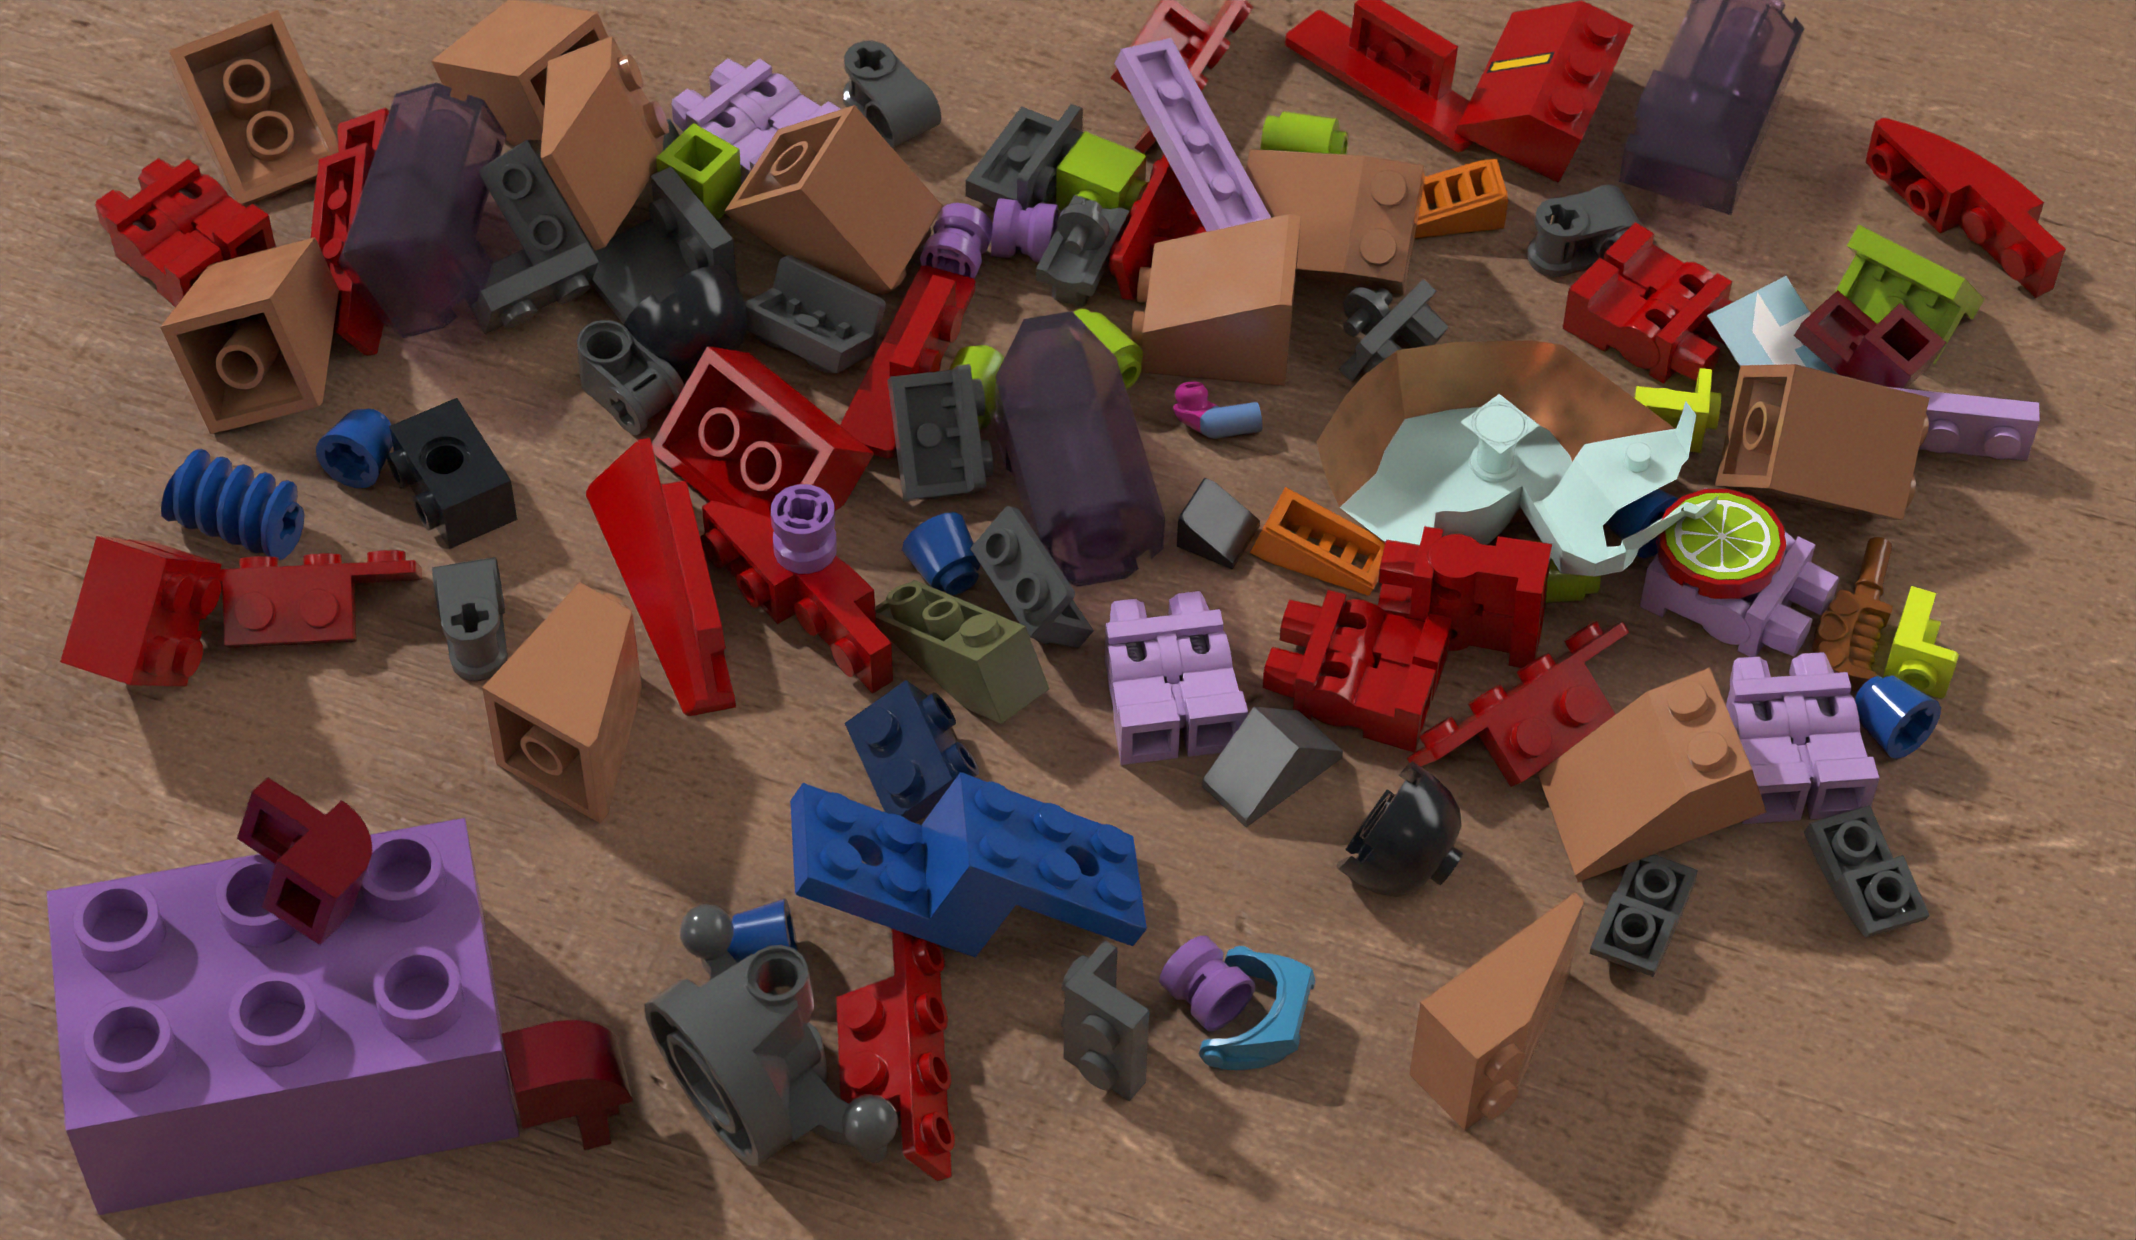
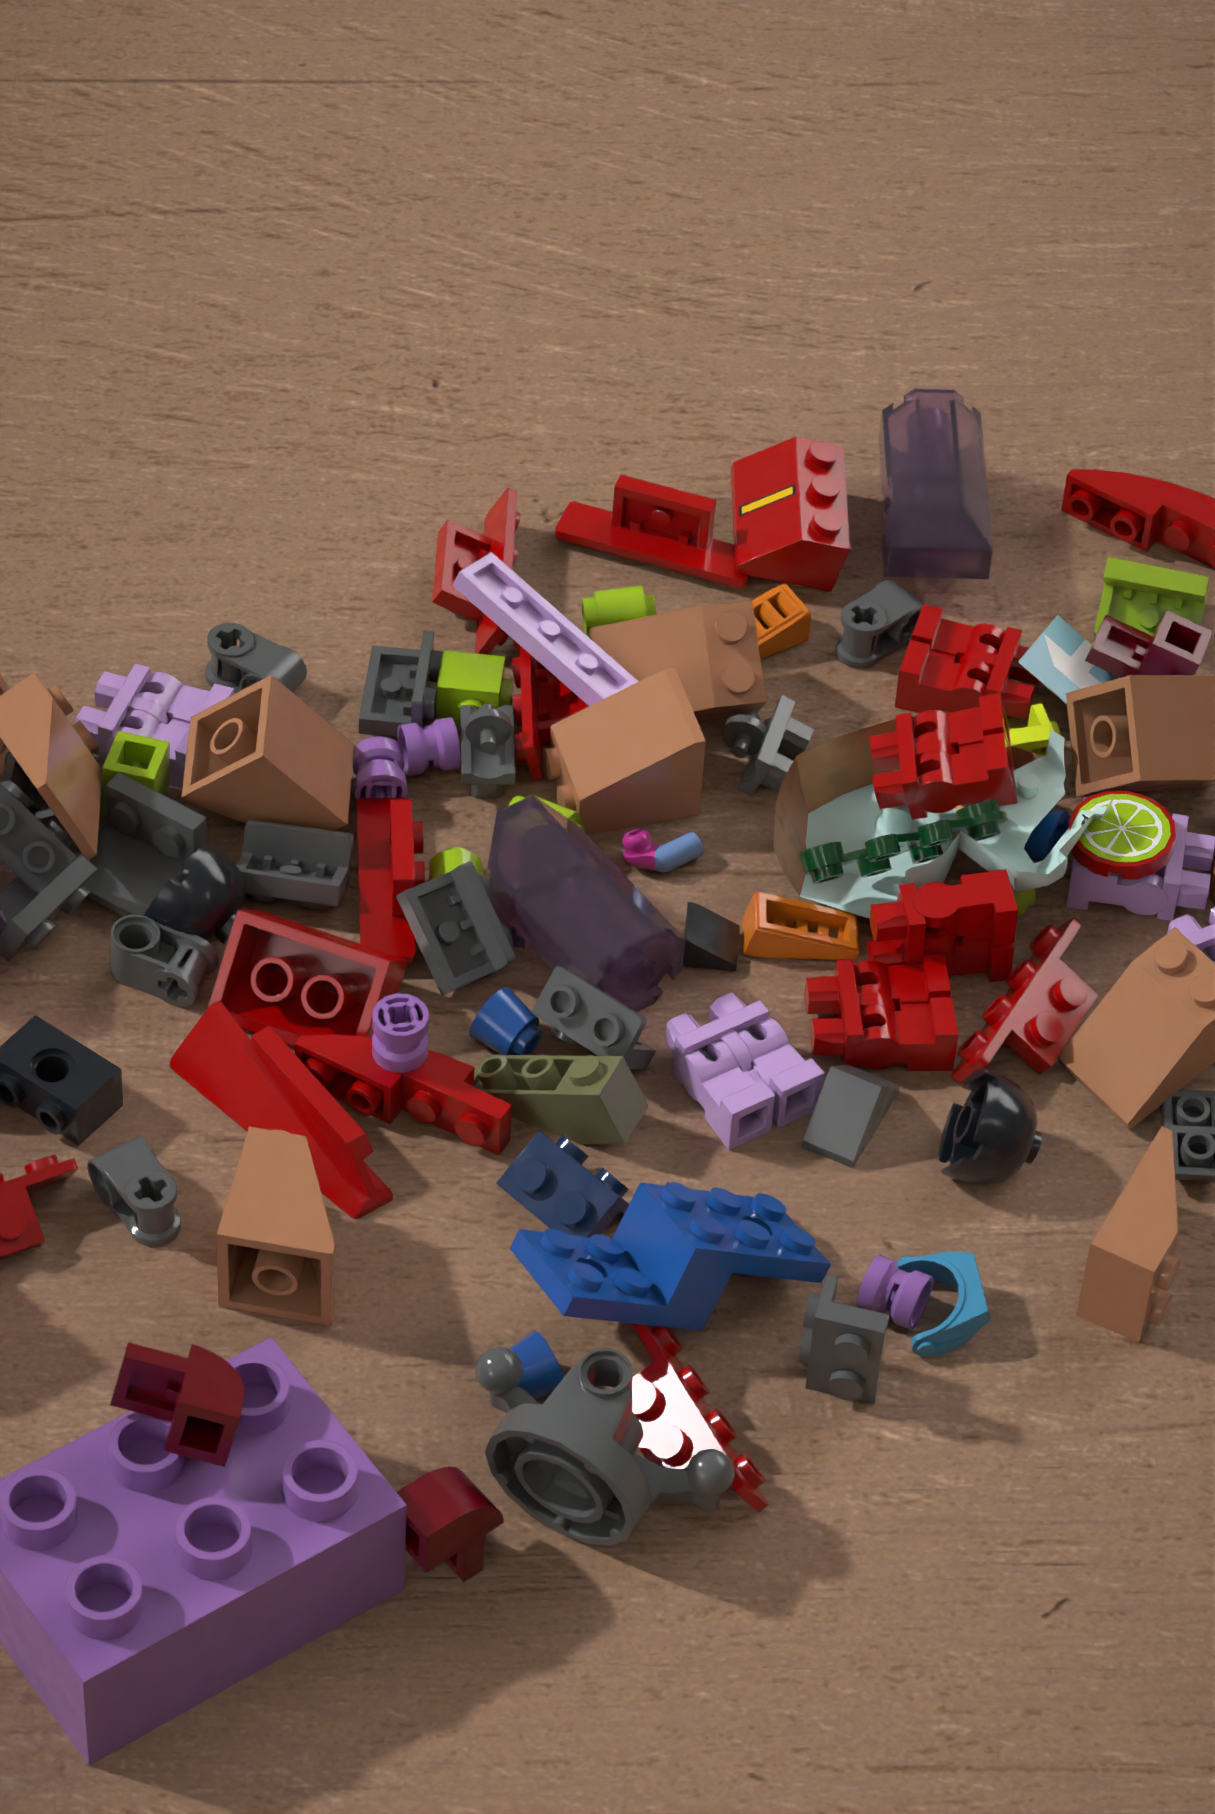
camera: 25 degrees left, 5 degrees down
(1437, 488) = (976, 820): none -> dark green plant
(1557, 402) = (946, 759): none -> red hips

